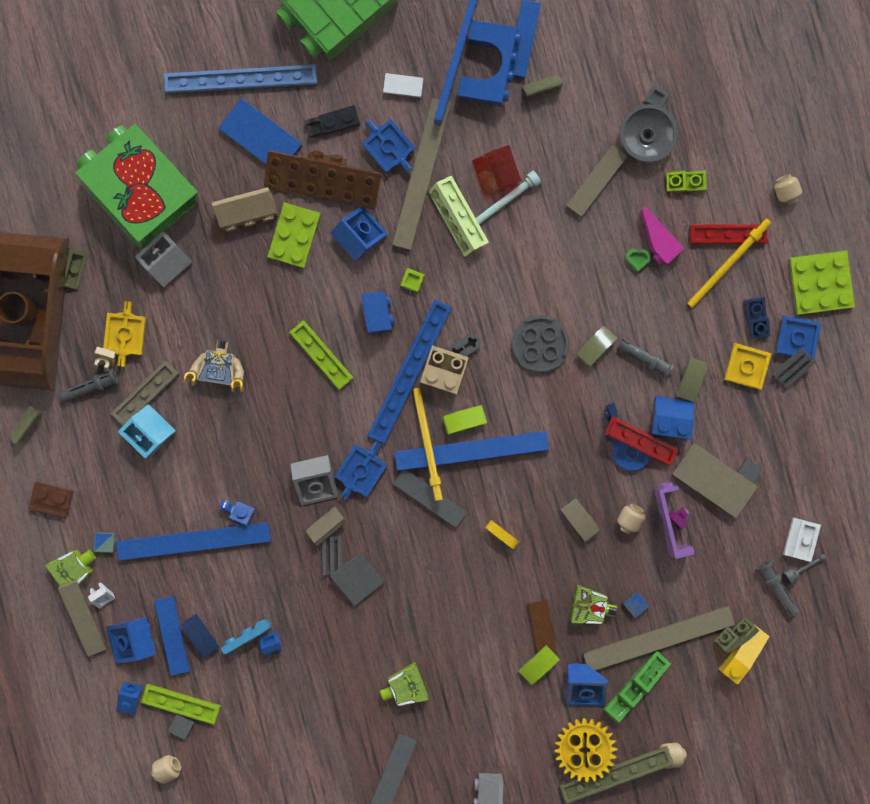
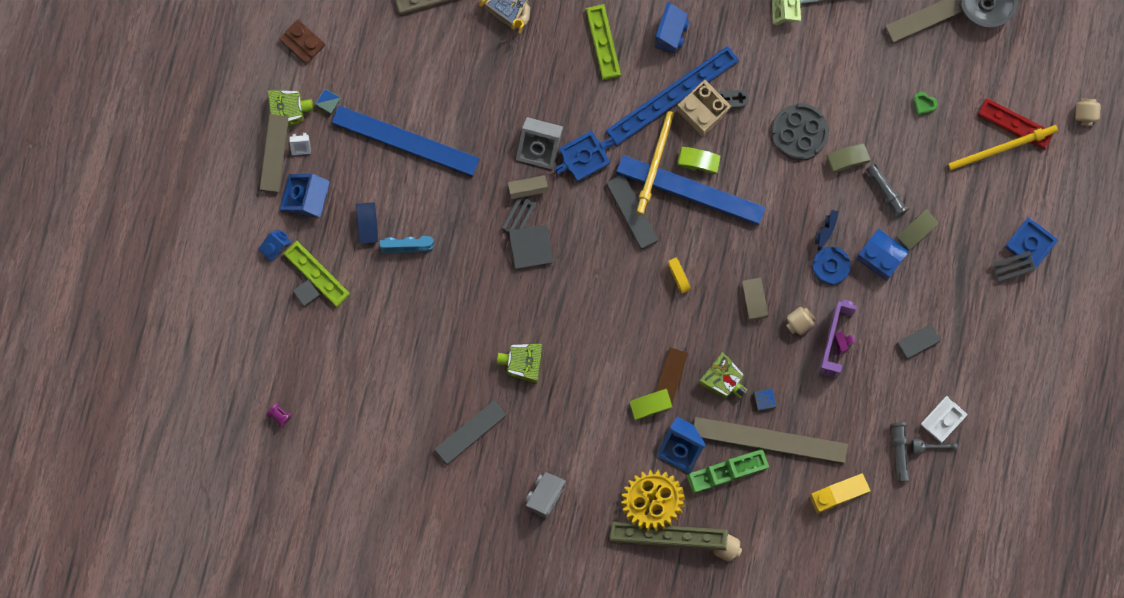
camera: 30 degrees right, 10 degrees down
(147, 431) = (417, 26): medium azure slope -> none
(166, 769) = (273, 321): tan head -> none
(172, 635) = (342, 211): blue tile -> none
(239, 513) = (457, 136): blue plate -> none
(270, 643) = (424, 261): blue tile -> none
(412, 280) = (716, 20): lime tile -> none
(641, 441) = (845, 257): red tile -> none
(661, 242) = (953, 101): dark pink slope -> none
(686, 181) = (1001, 60): lime slope -> none
(715, 480) = (892, 327): dark tan tile -> none
(740, 634) = (833, 471): olive slope -> none
(747, 366) = (973, 245): yellow tile -> none
(756, 317) = (1004, 207): dark blue slope -> none
(821, 282) = (1077, 207): lime plate -> none

